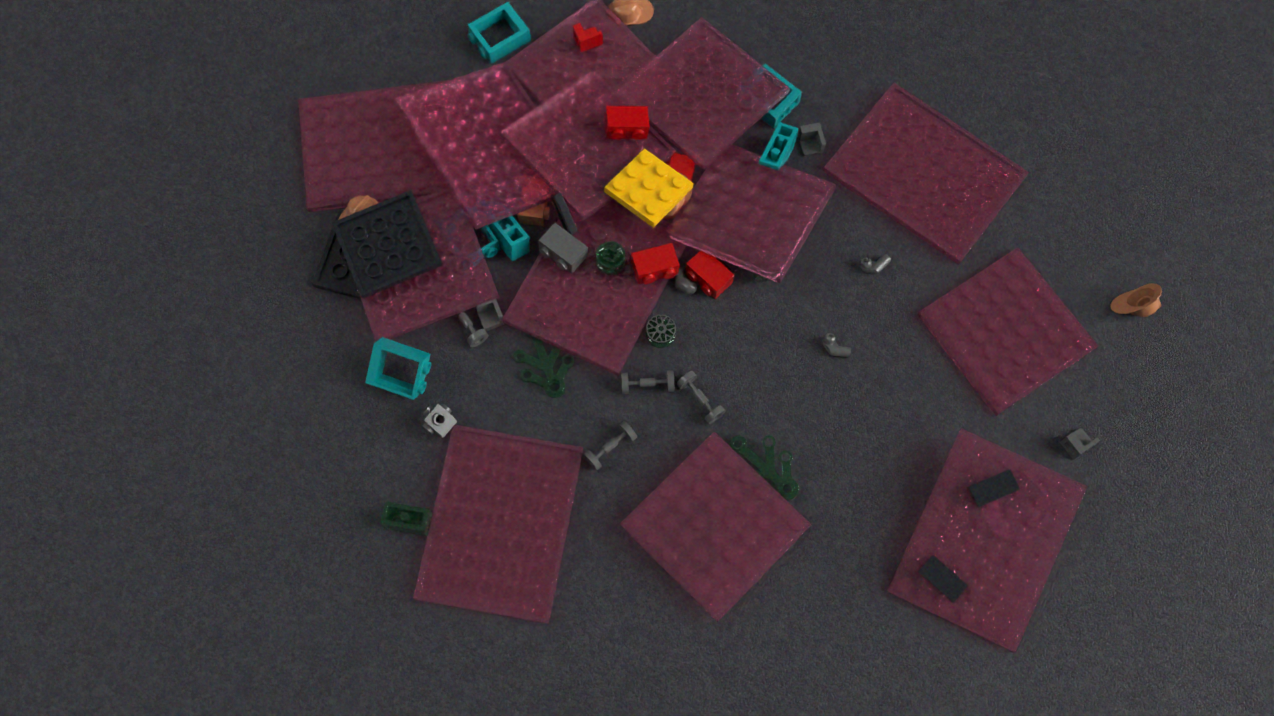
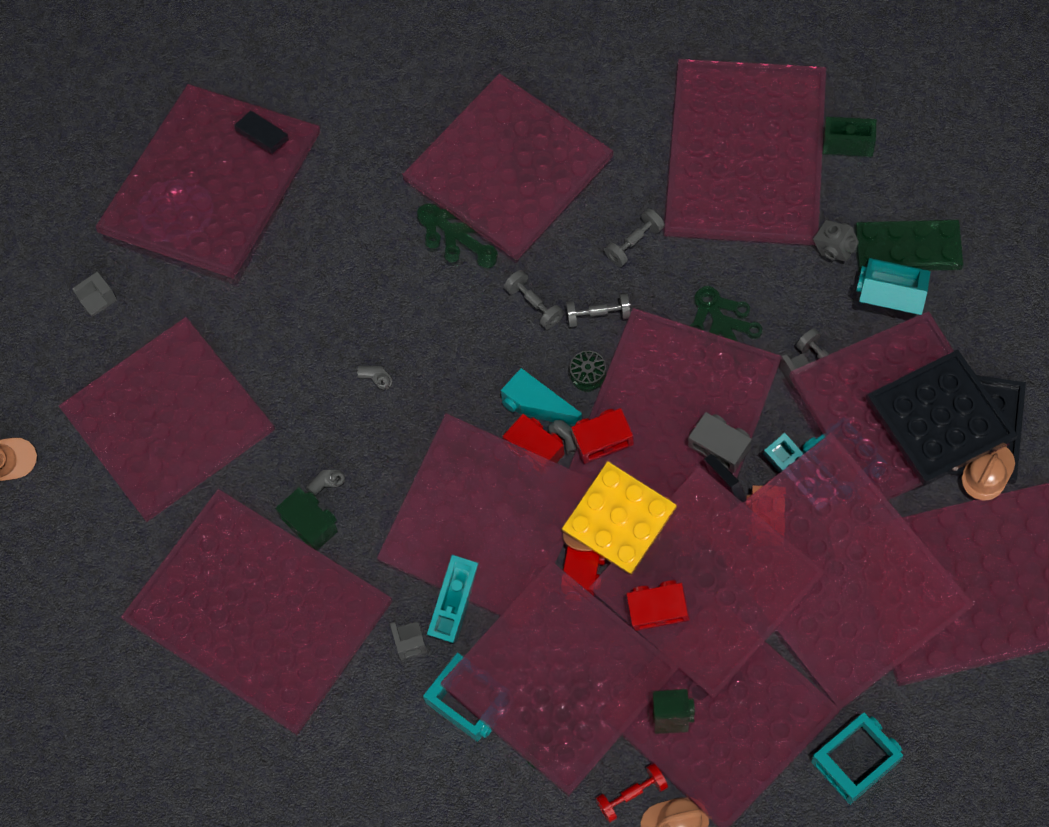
camera: 175 degrees left, 5 degrees down
(376, 417) = (911, 243): none -> clear green plate
(587, 38) = (729, 752): red panel -> none
(610, 257) = (658, 438): clear green wheel -> none
(624, 56) = (672, 711): none -> clear green brick
(676, 19) = (655, 777): none -> red wheel
(707, 310) = (535, 400): none -> teal slope
(889, 232) = (307, 519): none -> clear green brick
(993, 488) = (200, 211): black tile -> none

